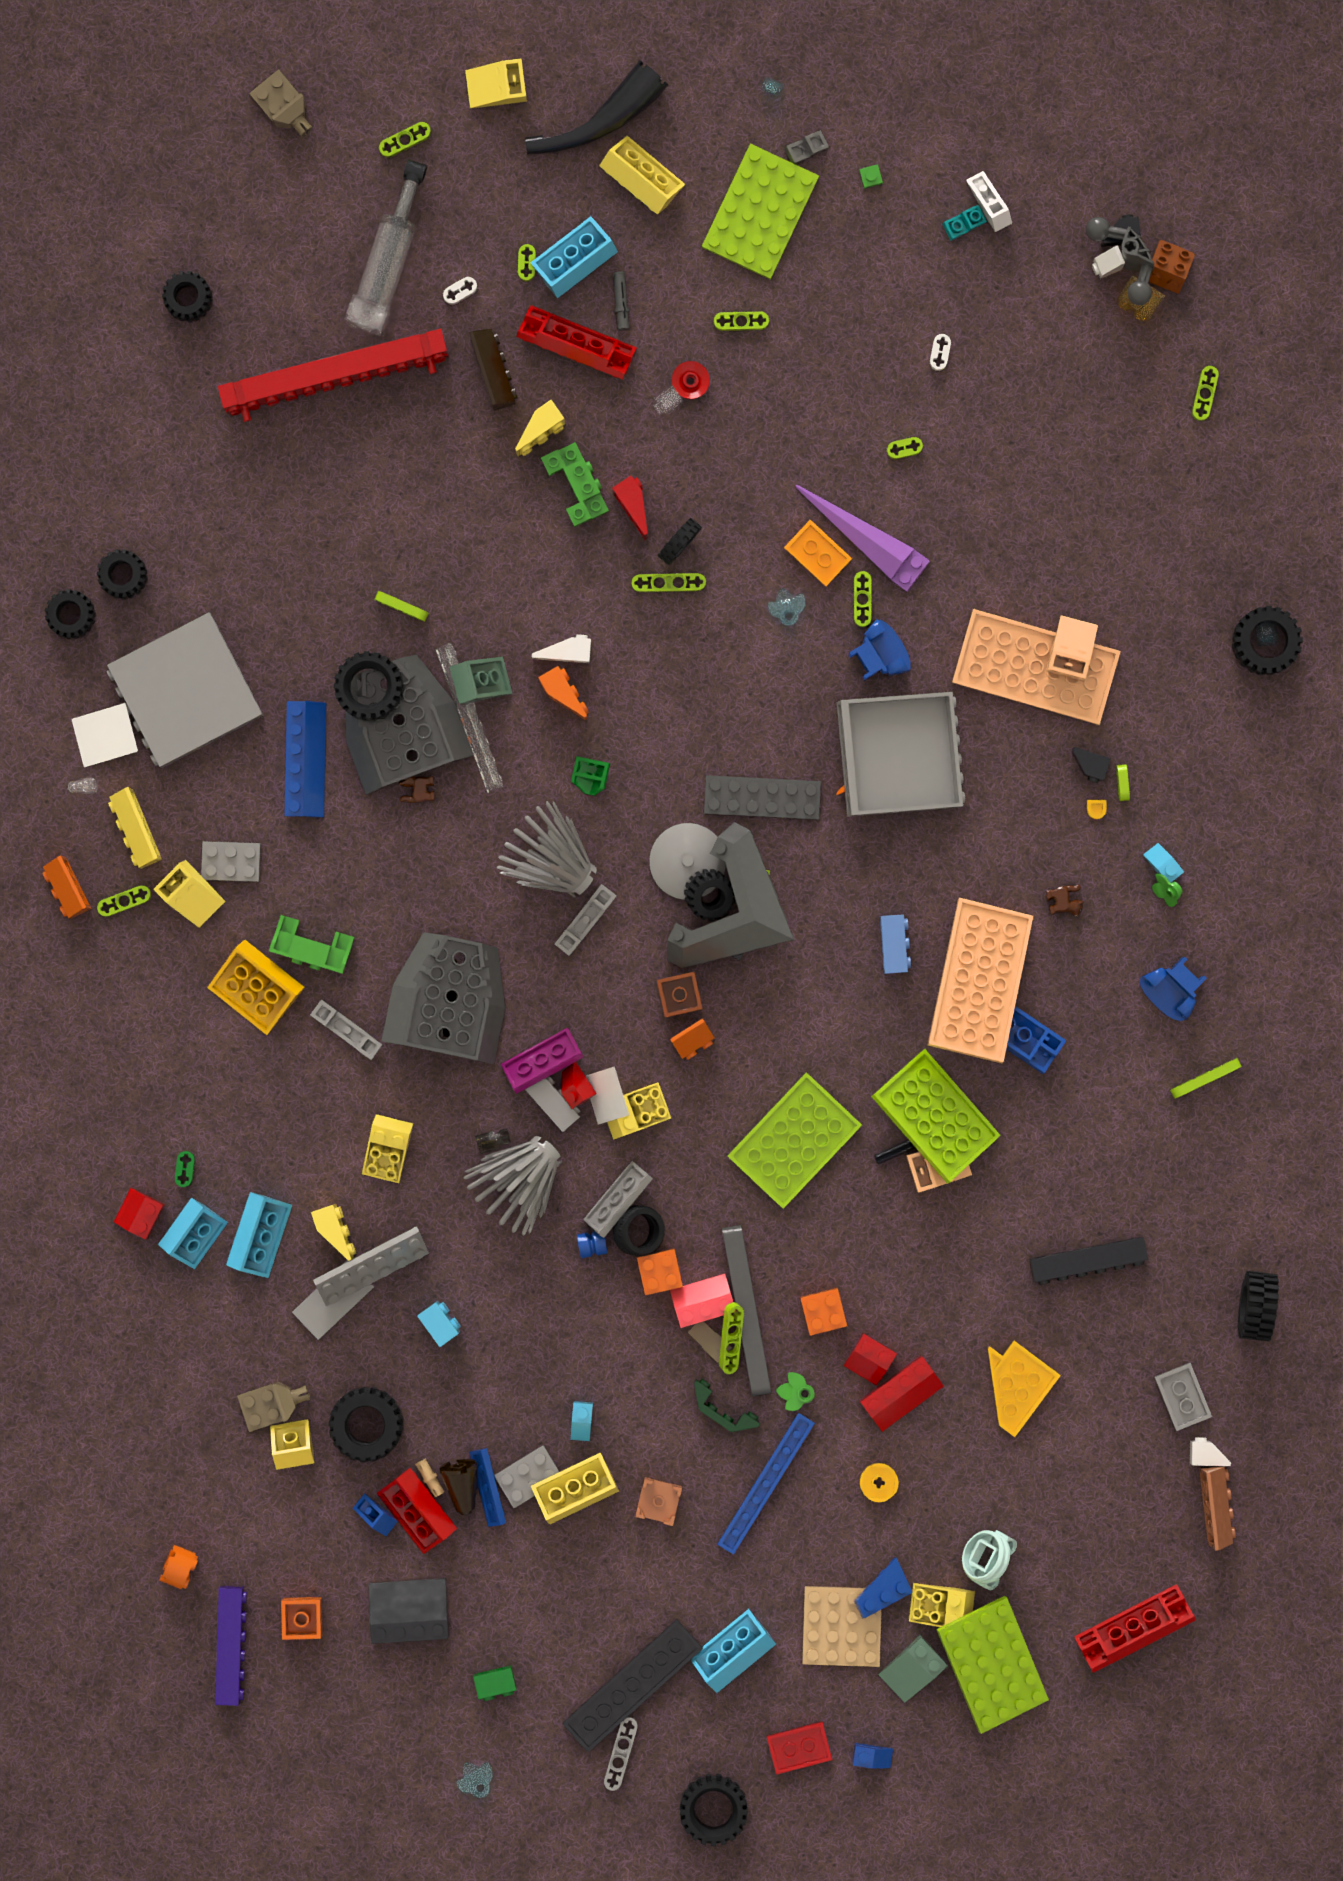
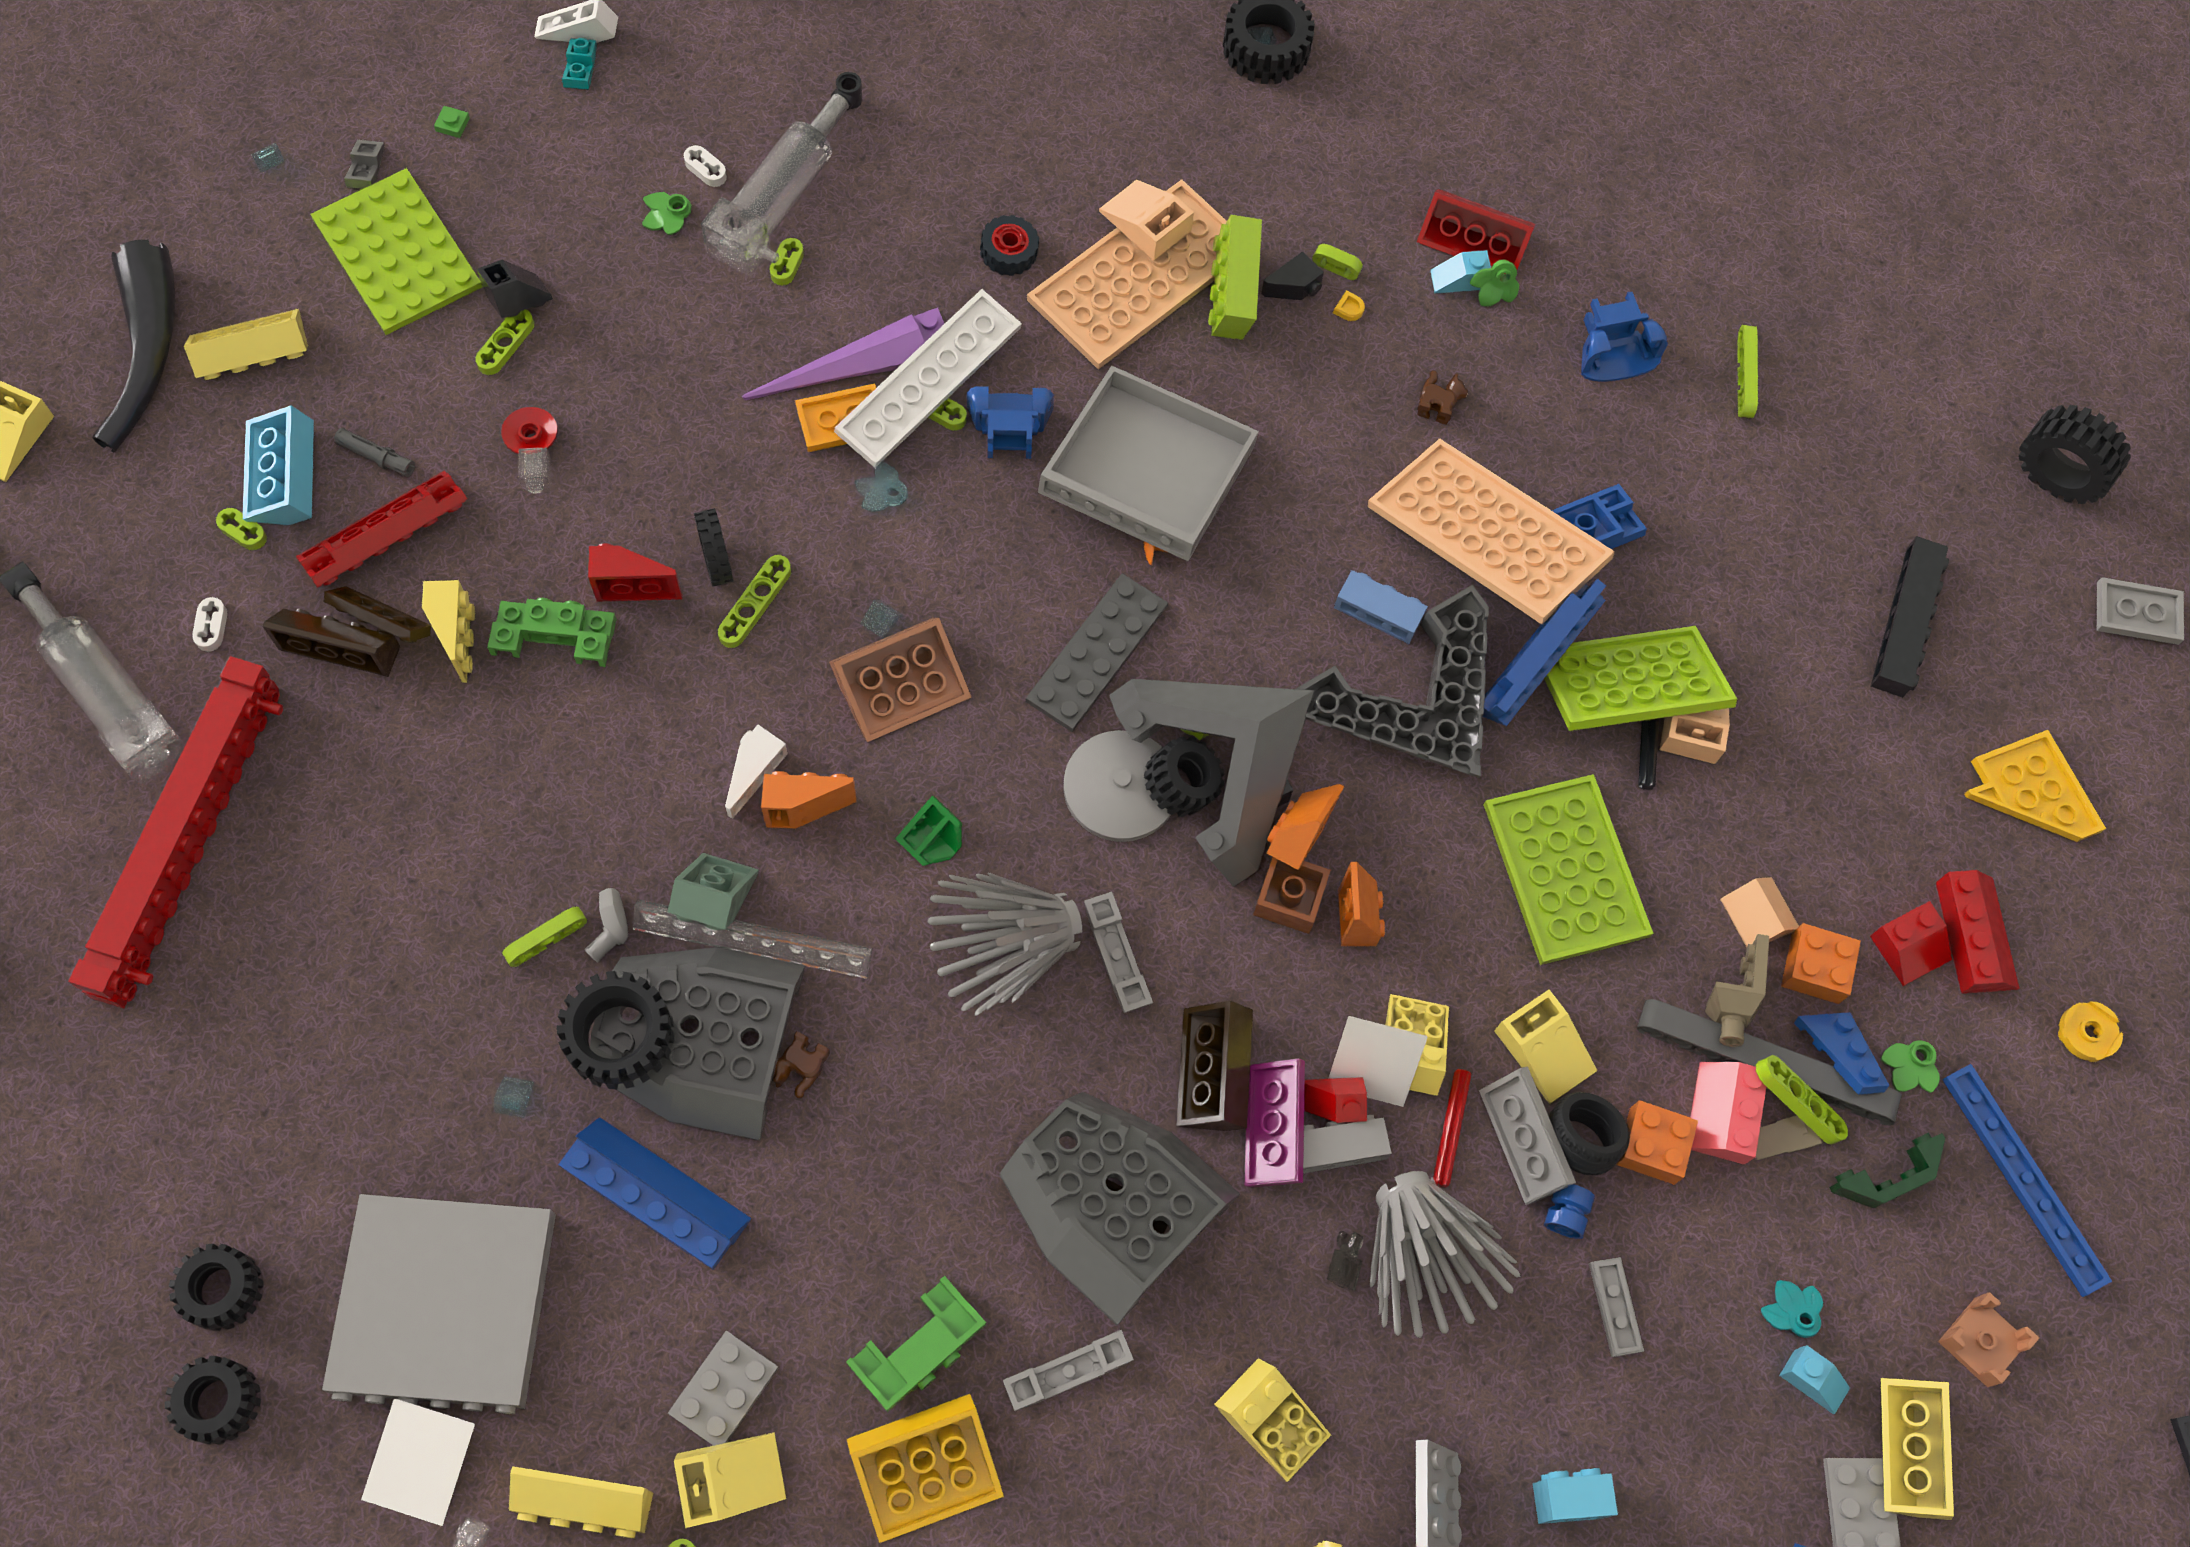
camera: 65 degrees left, 20 degrees down
(309, 650) = (513, 1097): none -> clear light blue slope
(431, 638) = (614, 924): none -> light grey arm
(521, 381) = (377, 613): none -> dark brown plate
(554, 1010) = (1215, 1067): none -> dark brown slope
(557, 1296) = (1616, 1307): none -> light grey tile
(601, 1157) = (1452, 1127): none -> red axle
(616, 1389) = (1793, 1305): none -> teal plate
(672, 697) = (900, 679): none -> nougat slope
(677, 1185) = (1547, 1044): none -> light yellow slope
(705, 660) = (880, 618): none -> clear light blue slope
(719, 978) = (1302, 825): none -> orange slope
(761, 1276) = (1737, 1004): none -> dark tan plate
(775, 304) = (512, 288): none -> black slope
(779, 1348) = (1846, 1046): none -> blue wing
(837, 1263) = (1759, 910): none -> light nougat slope
(838, 1027) = (1450, 723): none -> dark grey wedge
(873, 589) = (927, 378): none -> white plate
(889, 350) = (663, 212): none -> bright green plate
(914, 1054) = (1541, 653): none -> blue slope
(951, 409) = (741, 228): none -> clear piece
(992, 581) = (1005, 232): none -> black wheel
(1059, 730) = (1235, 277): none -> lime brick
(1202, 856) = (1467, 226): none -> red slope

